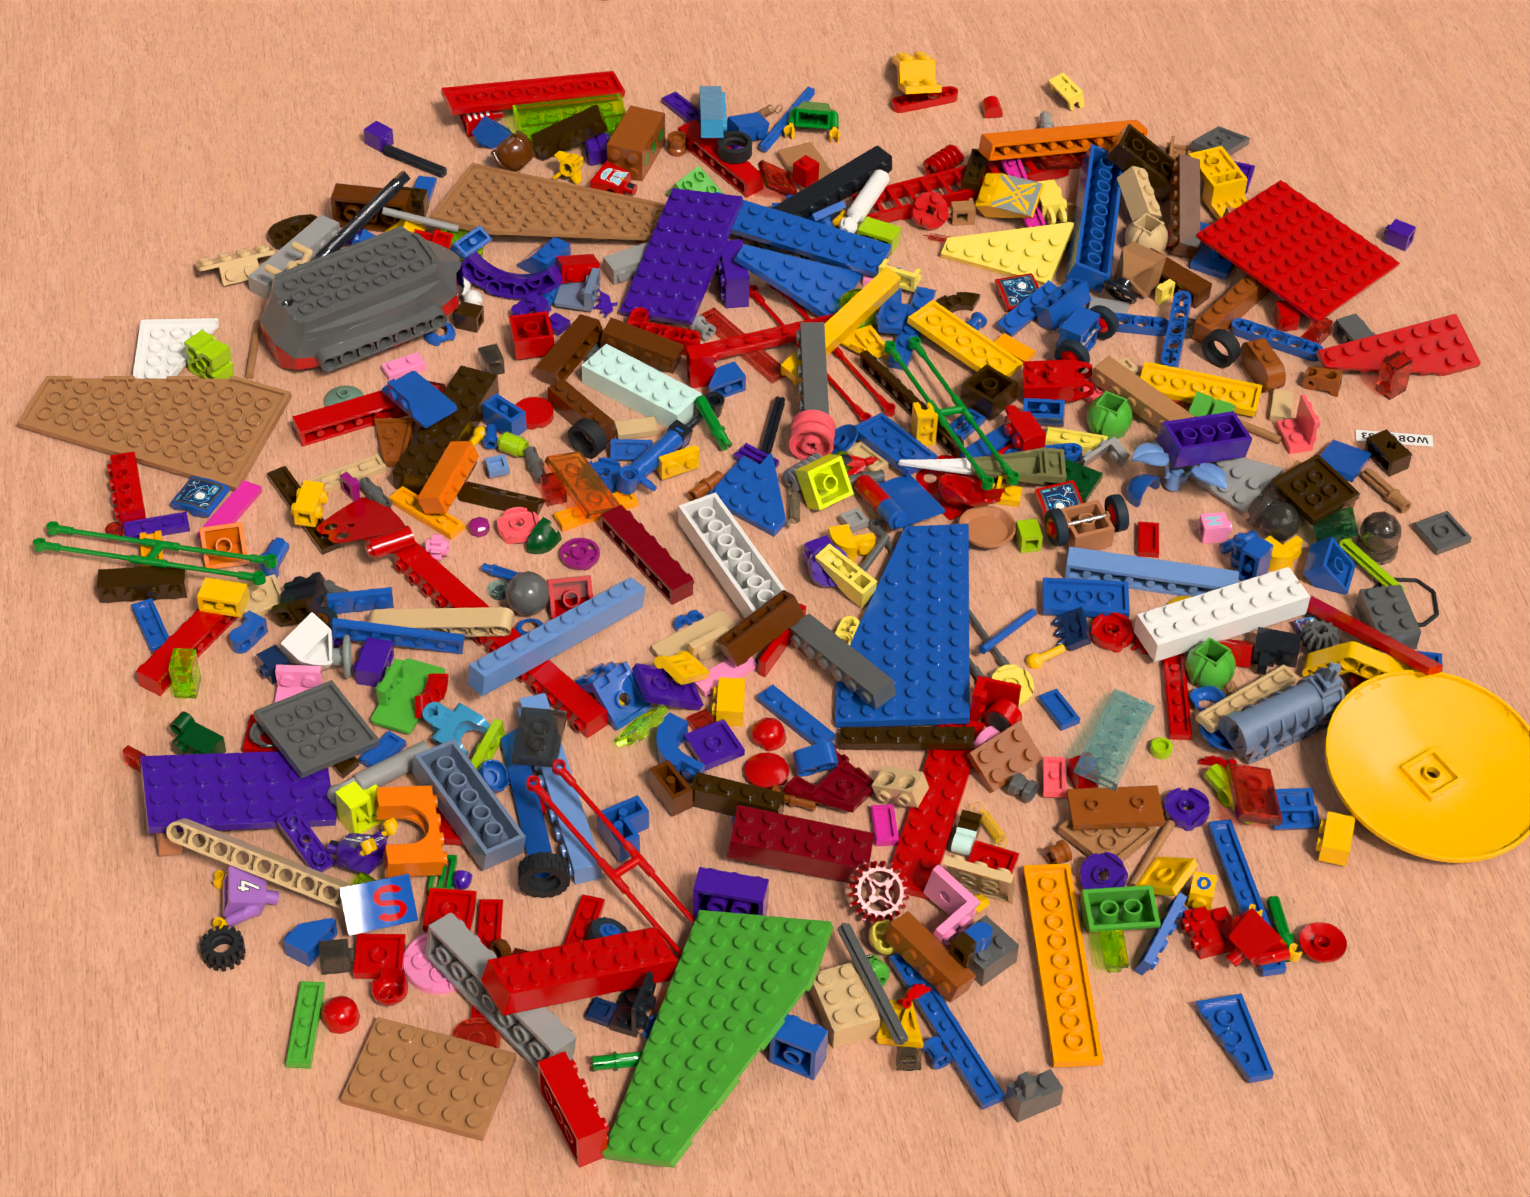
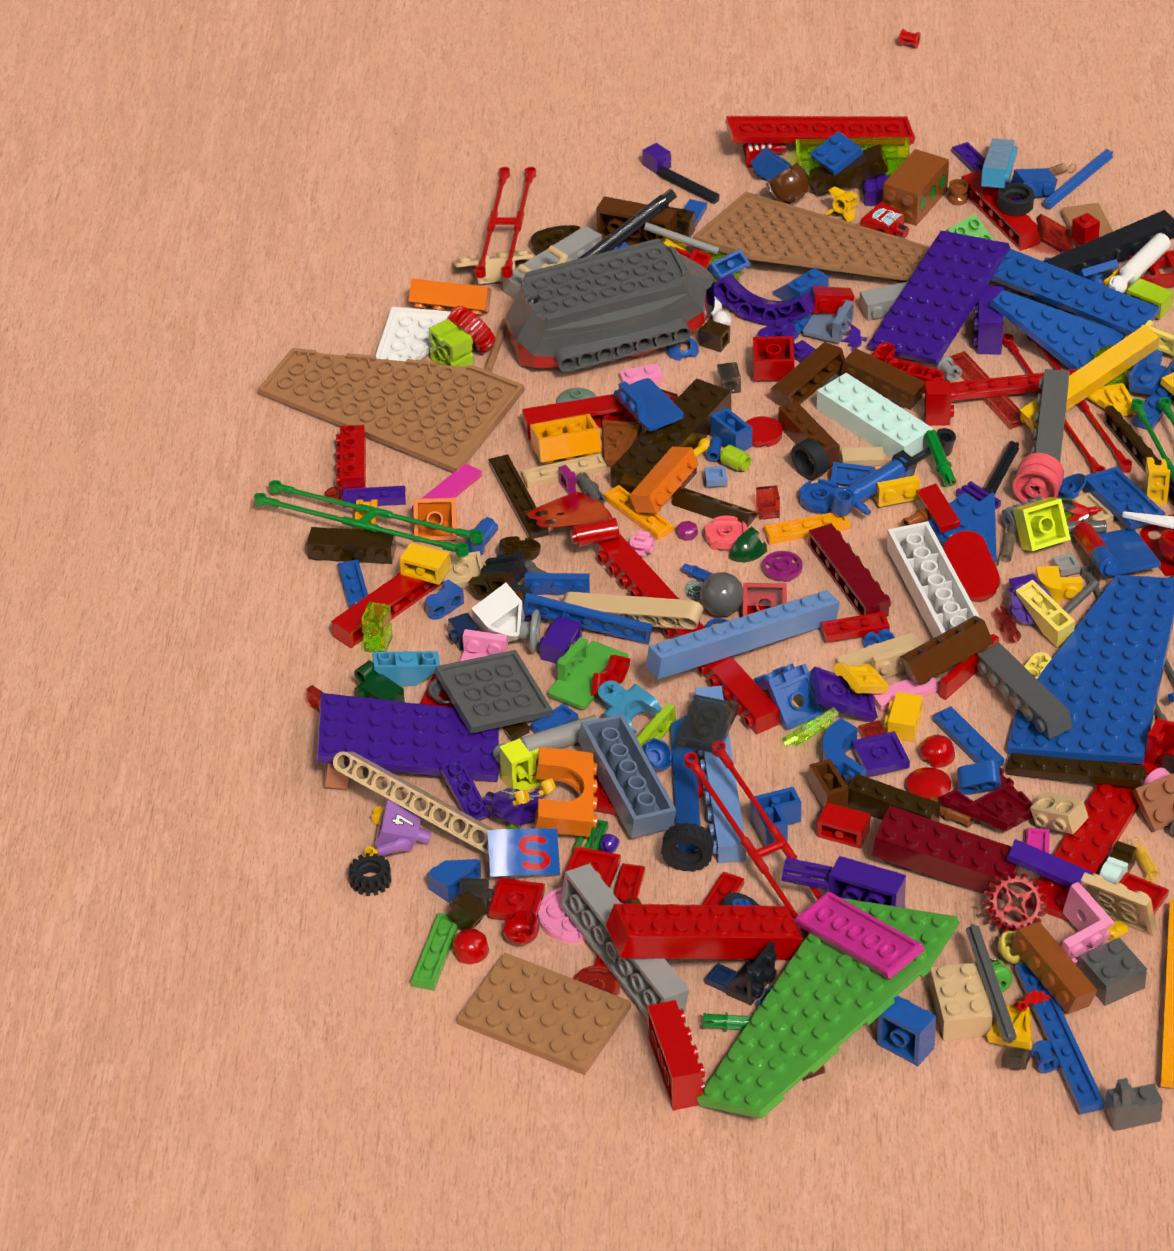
camera: 15 degrees right, 5 degrees down
(197, 302) = (449, 295): none -> orange brick
(200, 496) = (420, 473): slope -> none
(222, 712) = (406, 667): none -> dark azure slope
(229, 334) = (471, 324): none -> red gear
(252, 271) = (507, 270): none -> red bar
(307, 564) = (512, 544): none -> dark brown tile
(309, 503) = (524, 489): yellow brick -> none
(331, 977) = (467, 911): none -> dark brown brick
(341, 443) = (565, 438): none -> light orange brick
(535, 463) = (754, 478): dark grey pin -> none
(555, 116) = (836, 153): none -> blue plate
(582, 483) = (795, 499): clear orange tile -> none
(662, 611) = (854, 626): none -> red plate
(668, 885) = (806, 870): none -> dark purple tile
(692, 827) = (843, 825): none -> red brick
(722, 476) = (938, 508): none -> red tile
(728, 380) = (964, 420): blue slope -> none
(736, 952) = (859, 935): none -> dark pink tile
(766, 531) = (973, 565): none -> red tile
(810, 590) = (1007, 624): none -> clear red pin
(813, 116) = (1105, 177): green torso -> none
(904, 847) = (1045, 864): none -> dark purple tile
(970, 942) = (1096, 957): leg -> none

